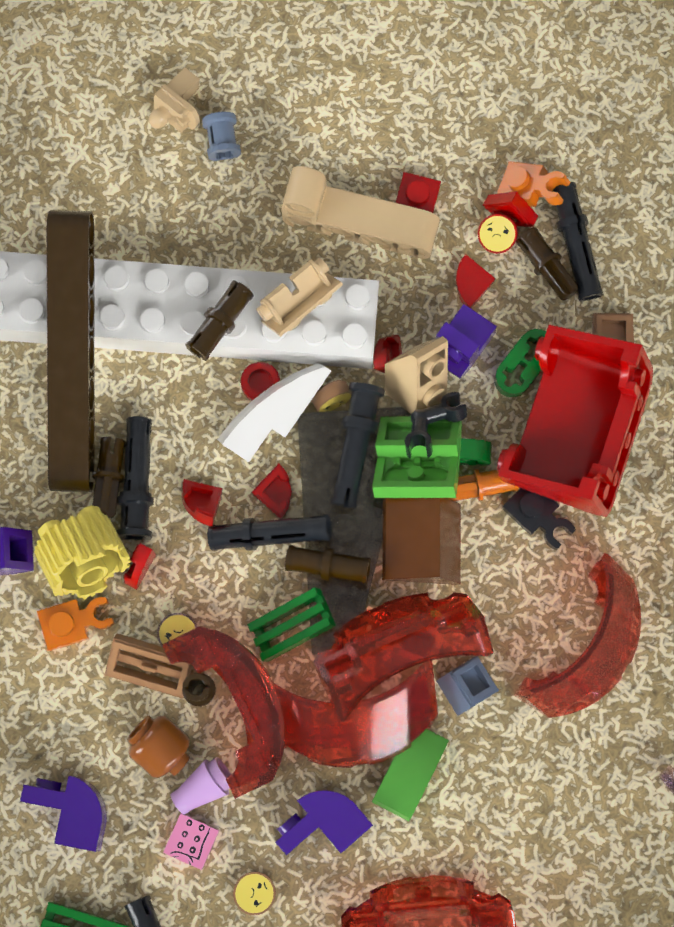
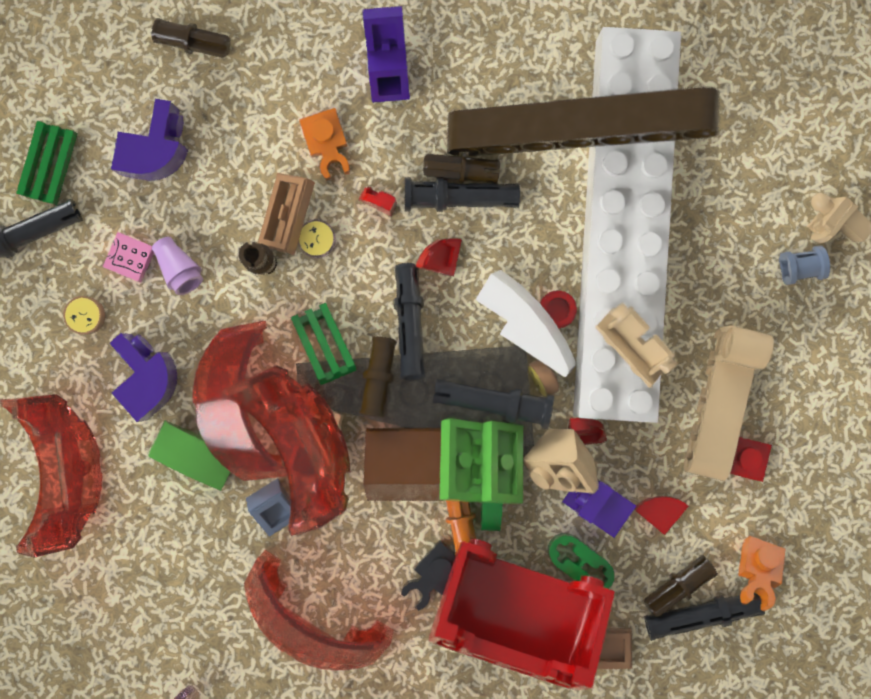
camera: 90 degrees right, 10 degrees up
(80, 553) = (384, 143): light yellow brick -> none
(159, 746) = (210, 224): dark orange head -> none
(219, 320) = (612, 267): dark brown pin -> none
(254, 697) = (252, 307): clear red windscreen -> none
(275, 492) = (451, 326): red tile -> none
(422, 417) = (518, 465): black arm -> none
(497, 233) = (710, 537): light yellow tile -> none
(512, 205) = (739, 552): red tile -> none

